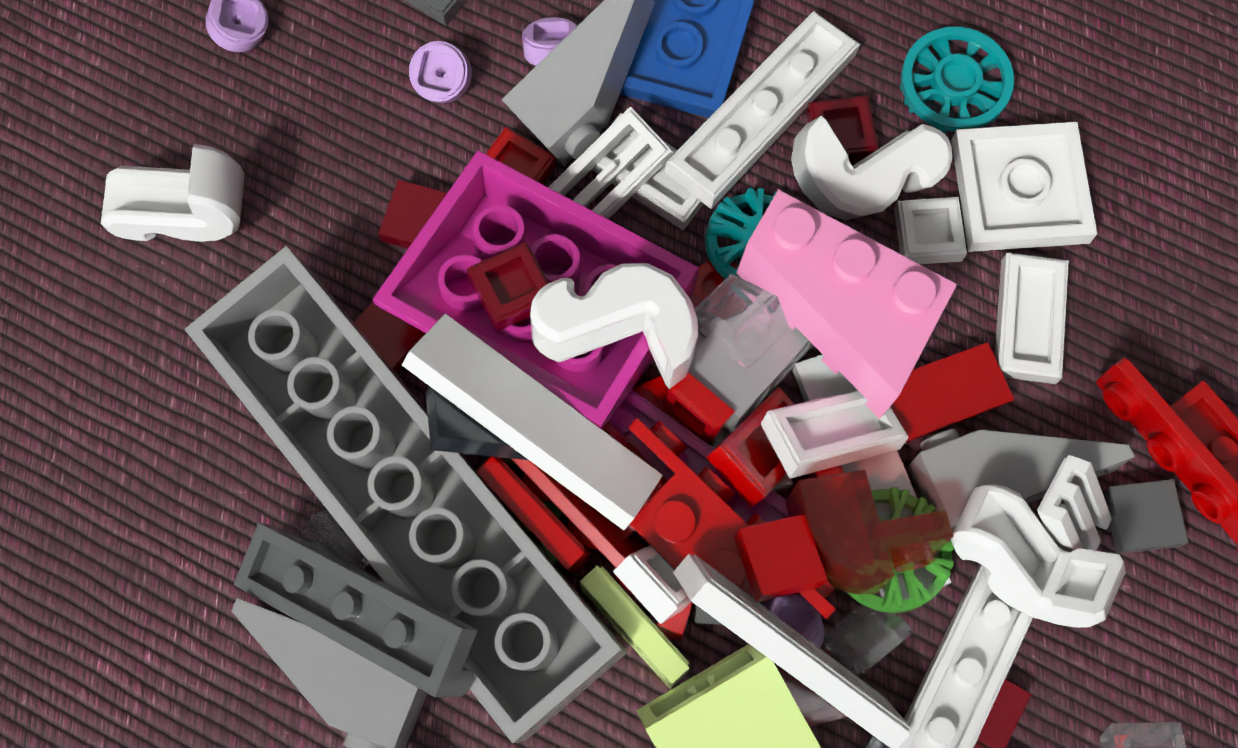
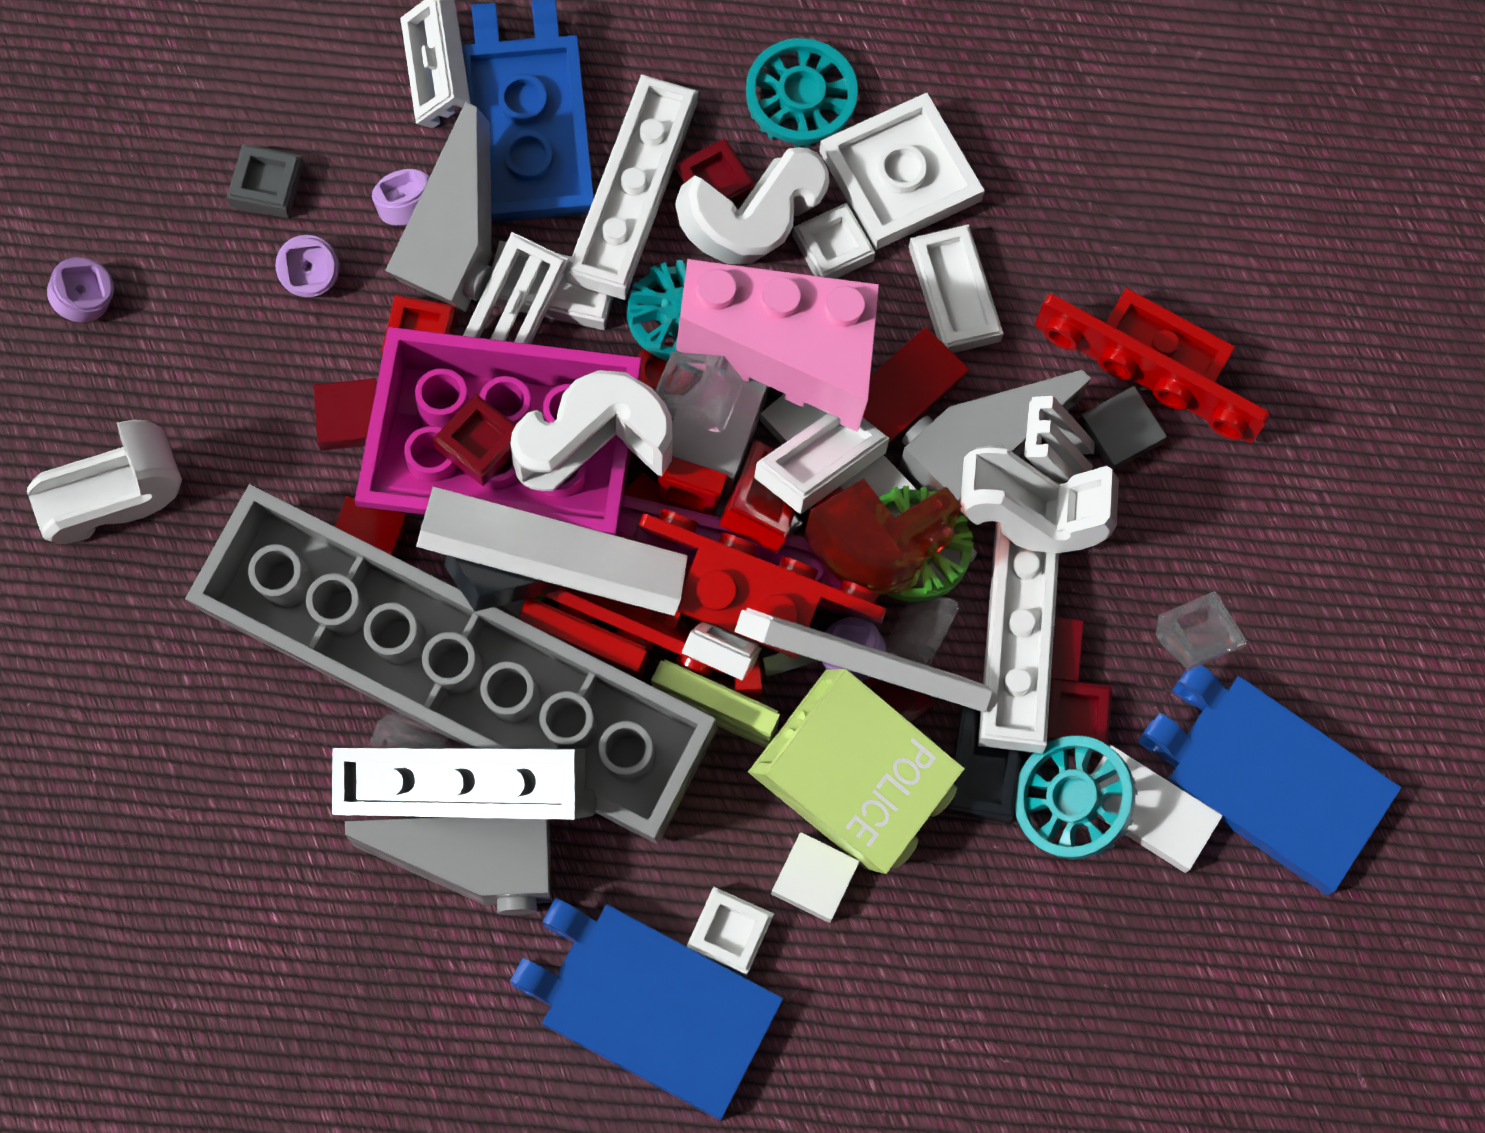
camera: 30 degrees left, 0 degrees up
(780, 558) = (821, 583): red tile -> none

